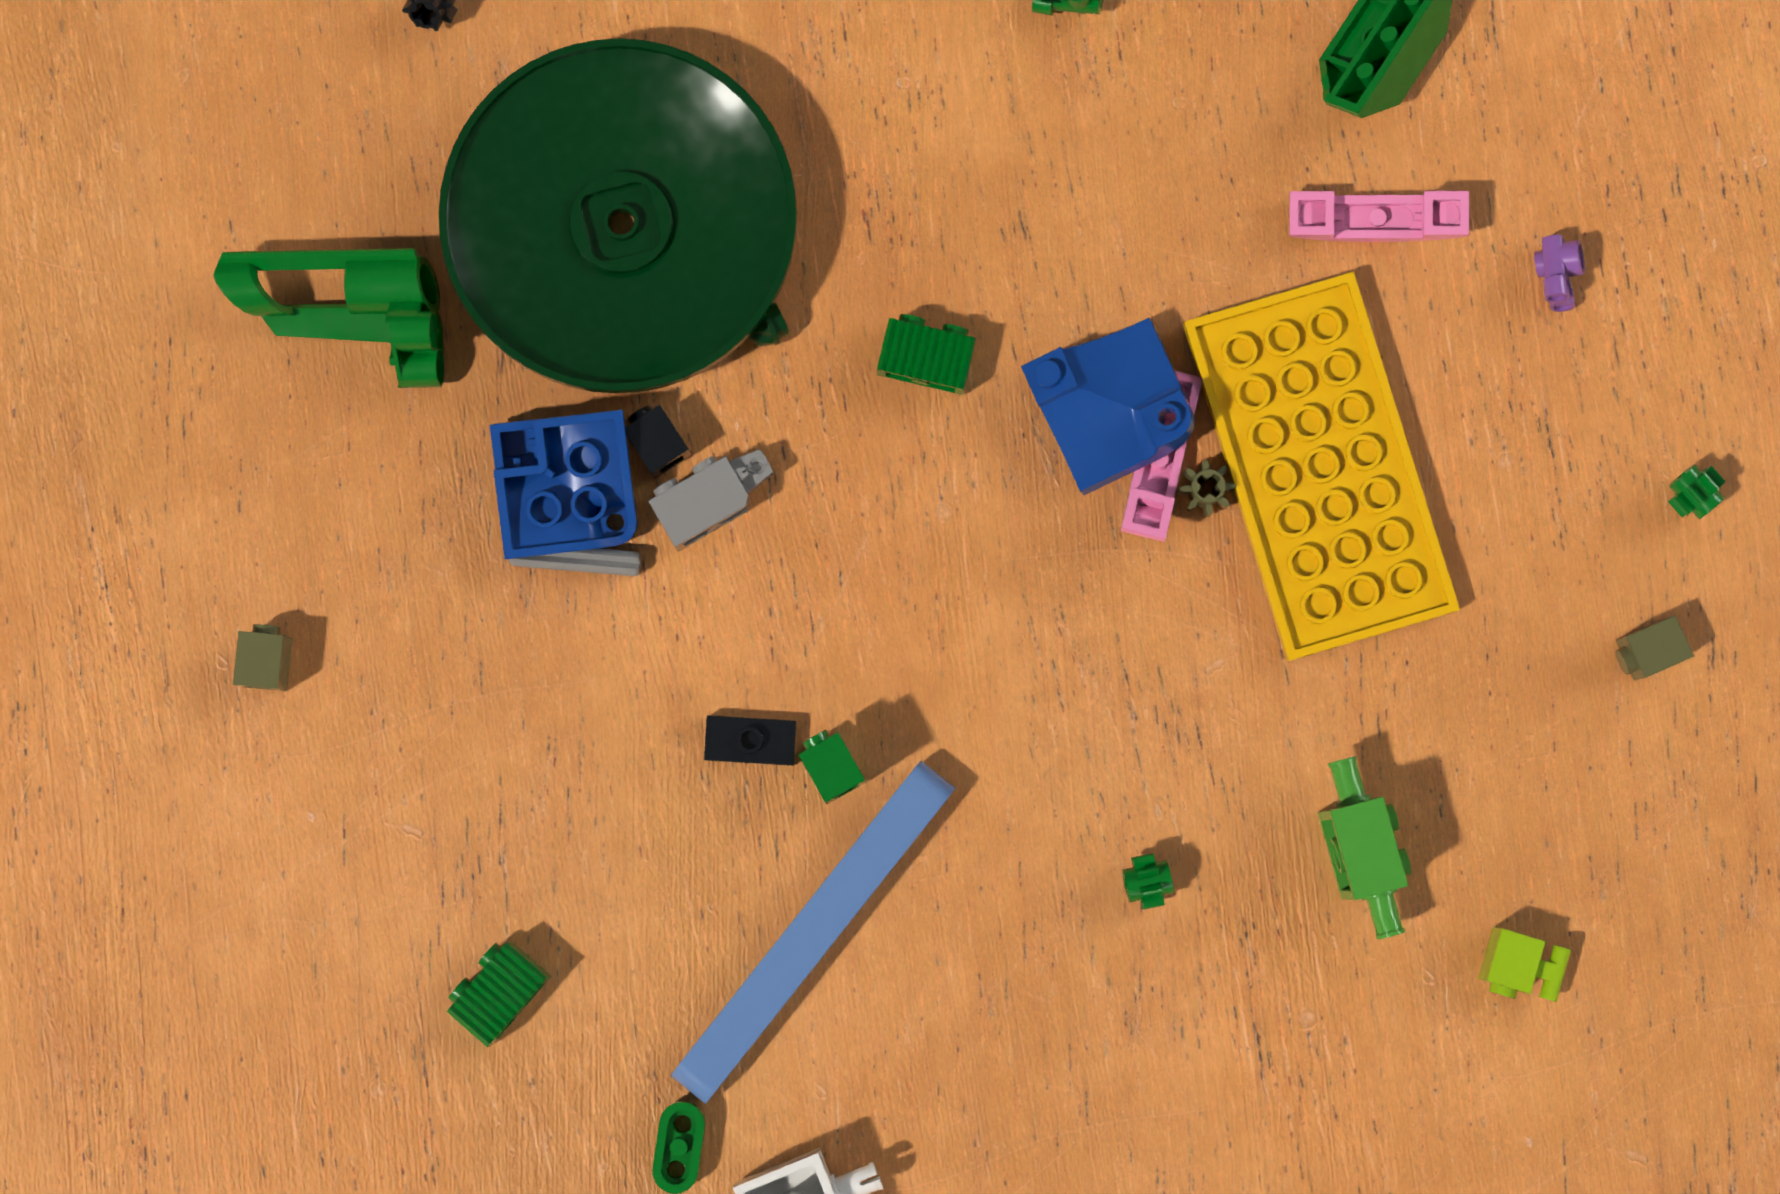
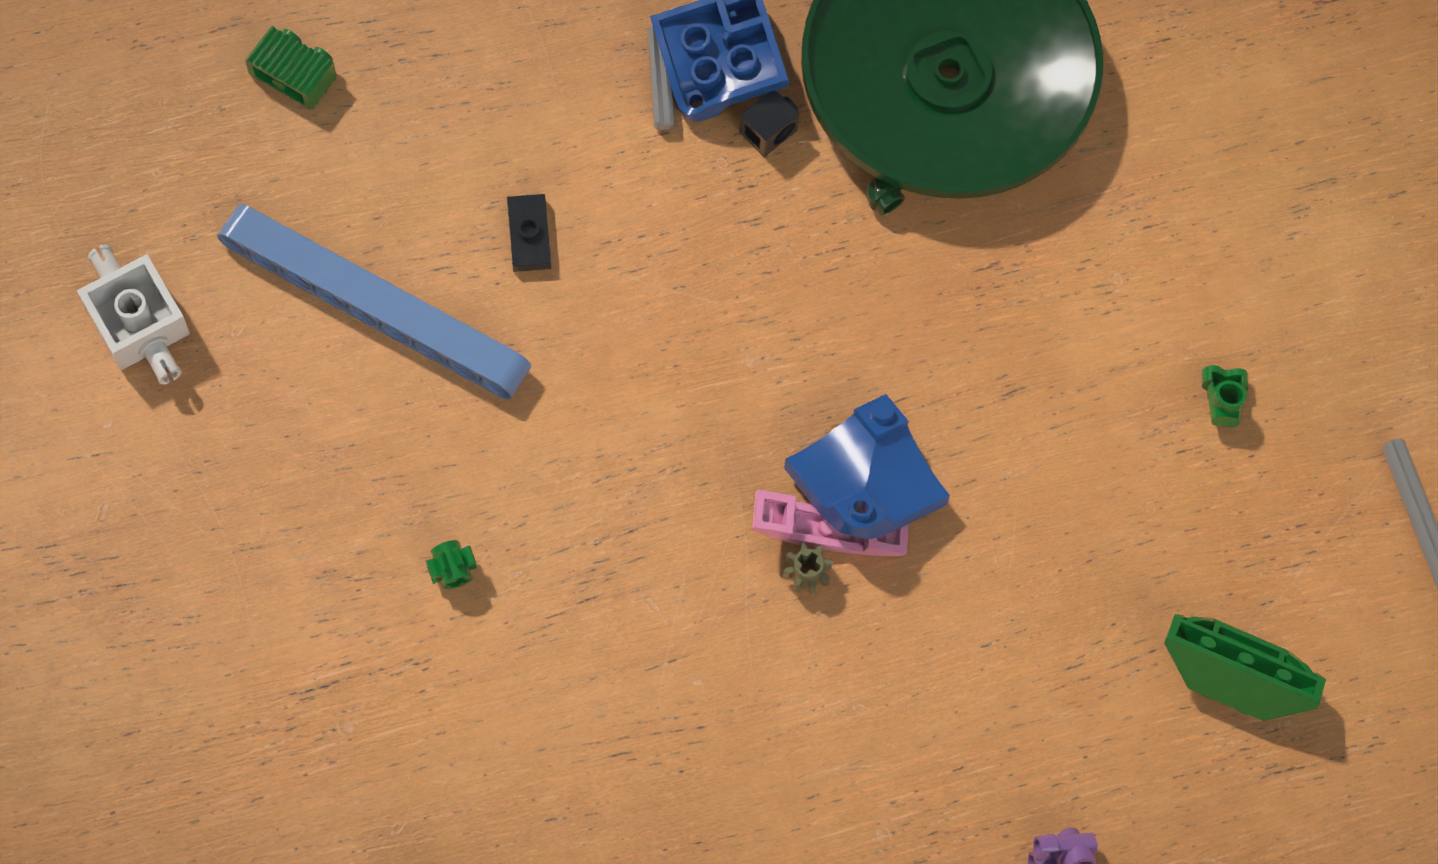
camera: 75 degrees right, 15 degrees down
(678, 1146) = (180, 221): green plate -> none
(709, 497) = (728, 168): light grey hinge -> none
(831, 766) = (513, 287): green brick -> none
(926, 354) = (882, 322): green brick -> none
(1320, 466) = (844, 666): yellow plate -> none
(1365, 848) = (505, 740): bright green brick -> none
(1378, 217) = (1080, 683): bright pink slope -> none

